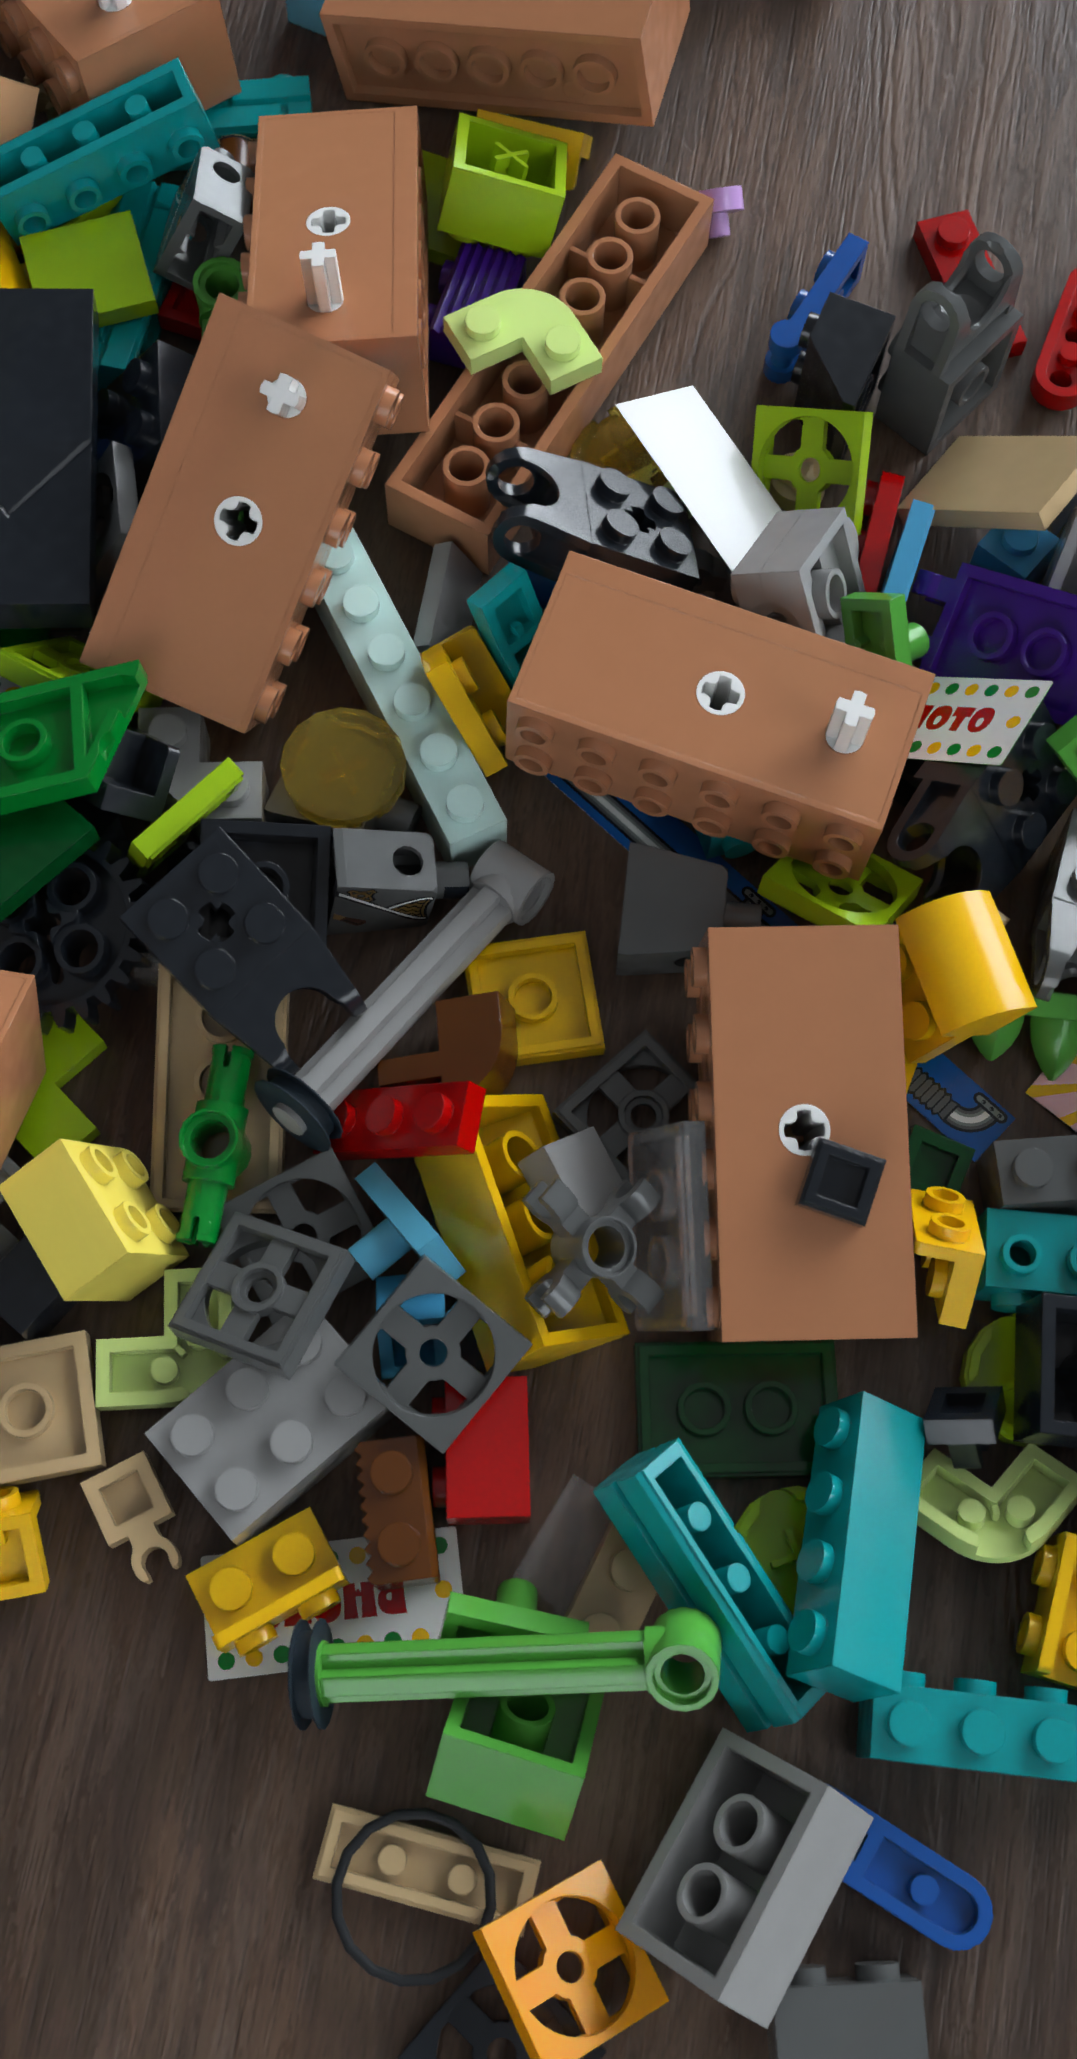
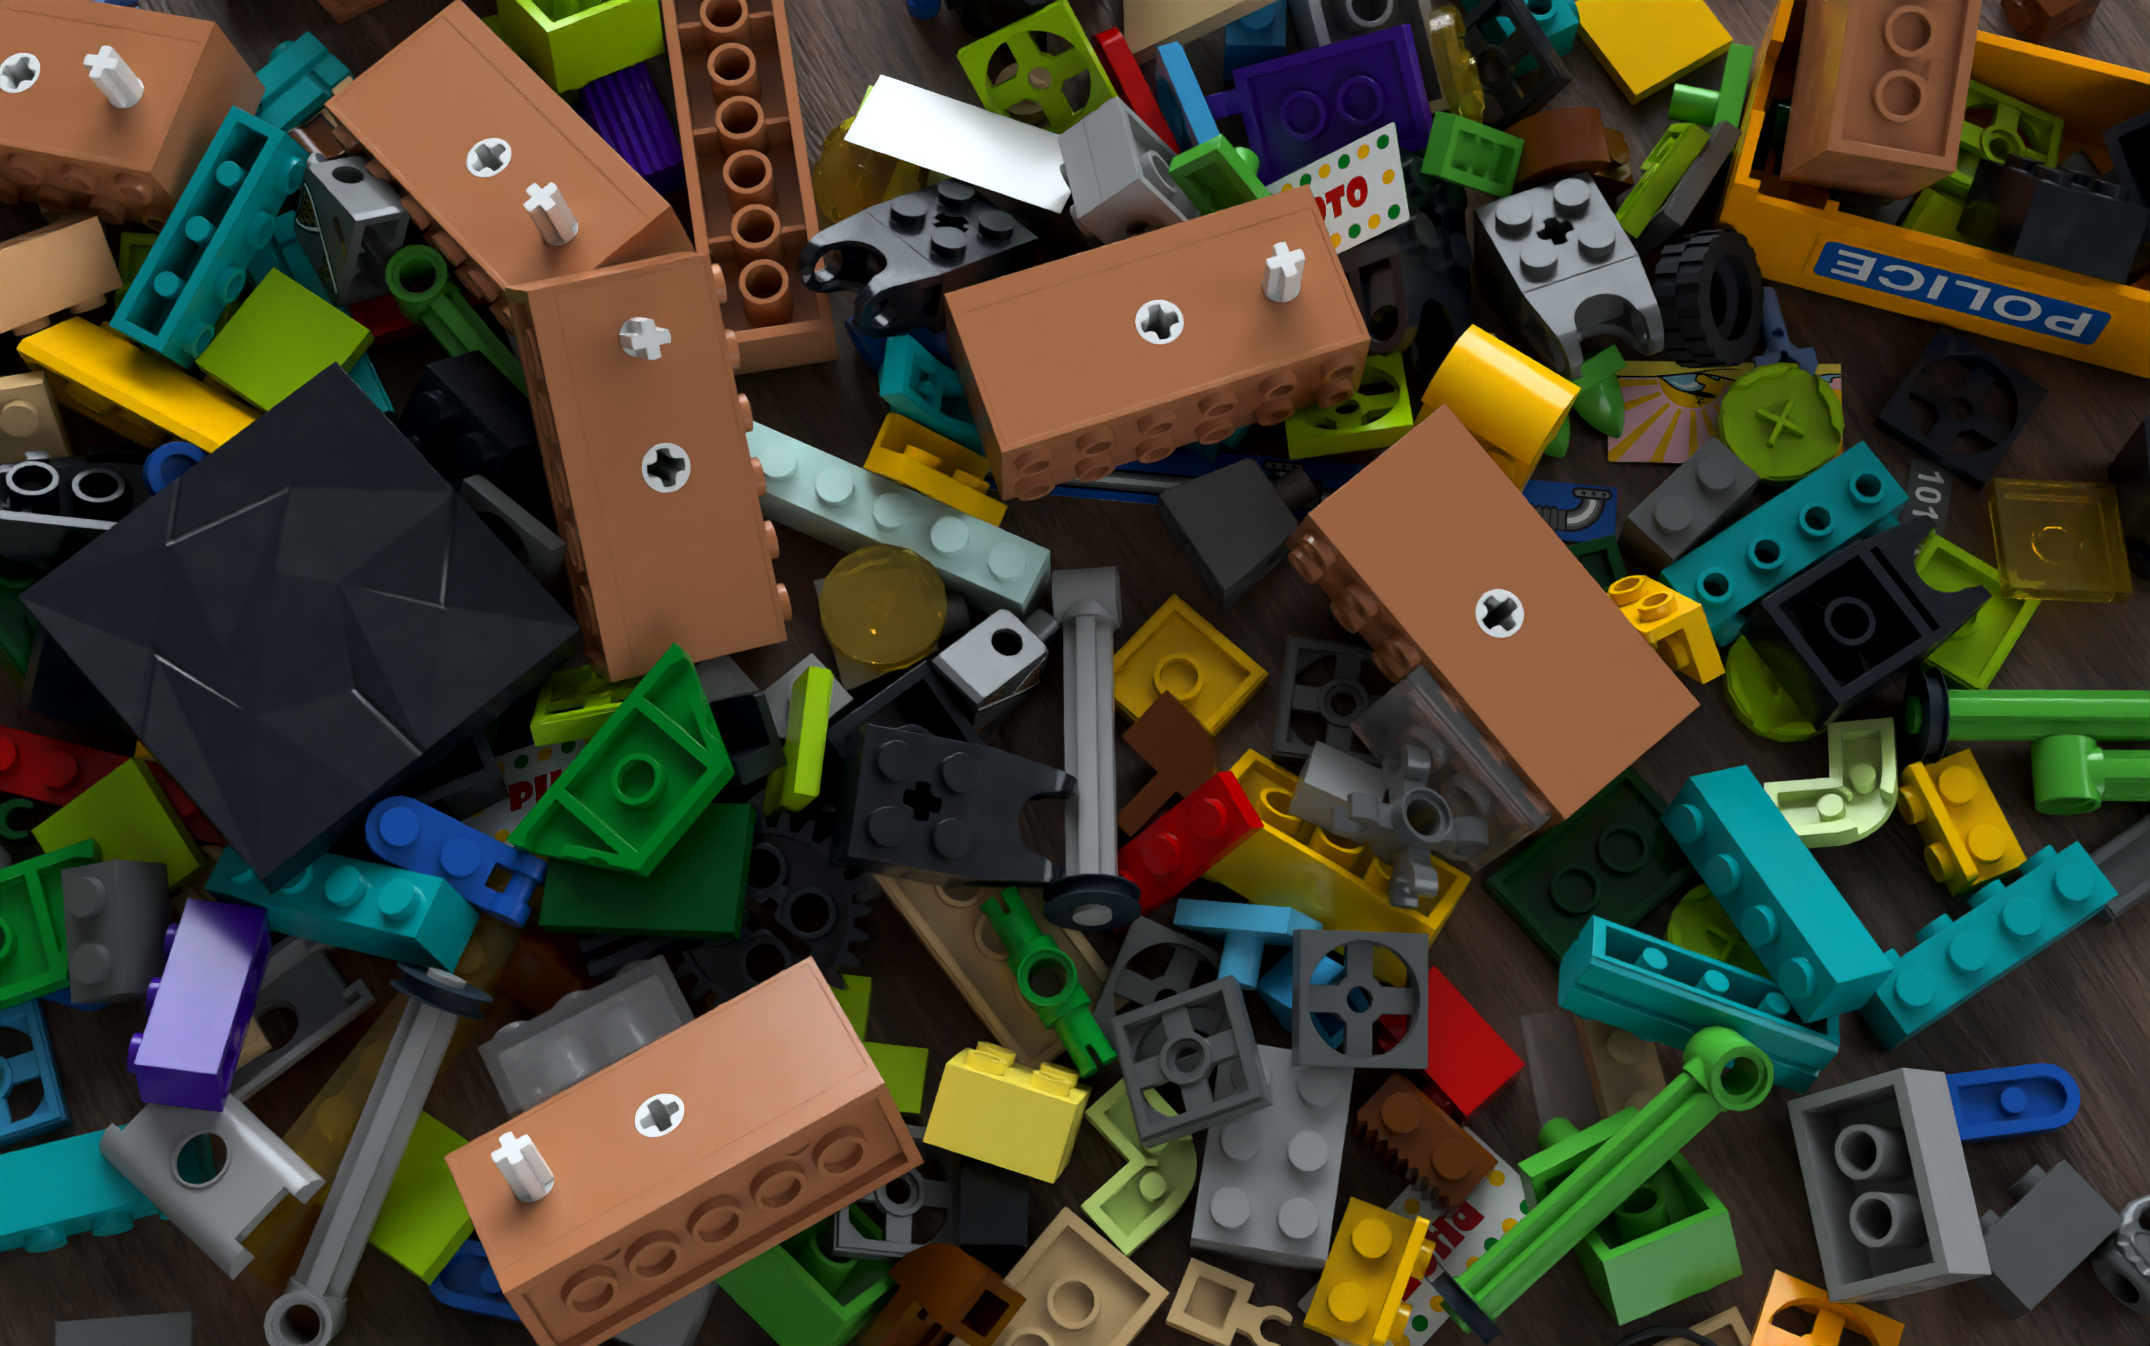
camera: 35 degrees left, 0 degrees up
(444, 605) = (832, 408): light grey tile -> none
(528, 324) = (714, 121): yellowish green plate -> none
(840, 1182) = (1558, 632): black tile -> none
(965, 1421) = (1773, 743): black tile -> none

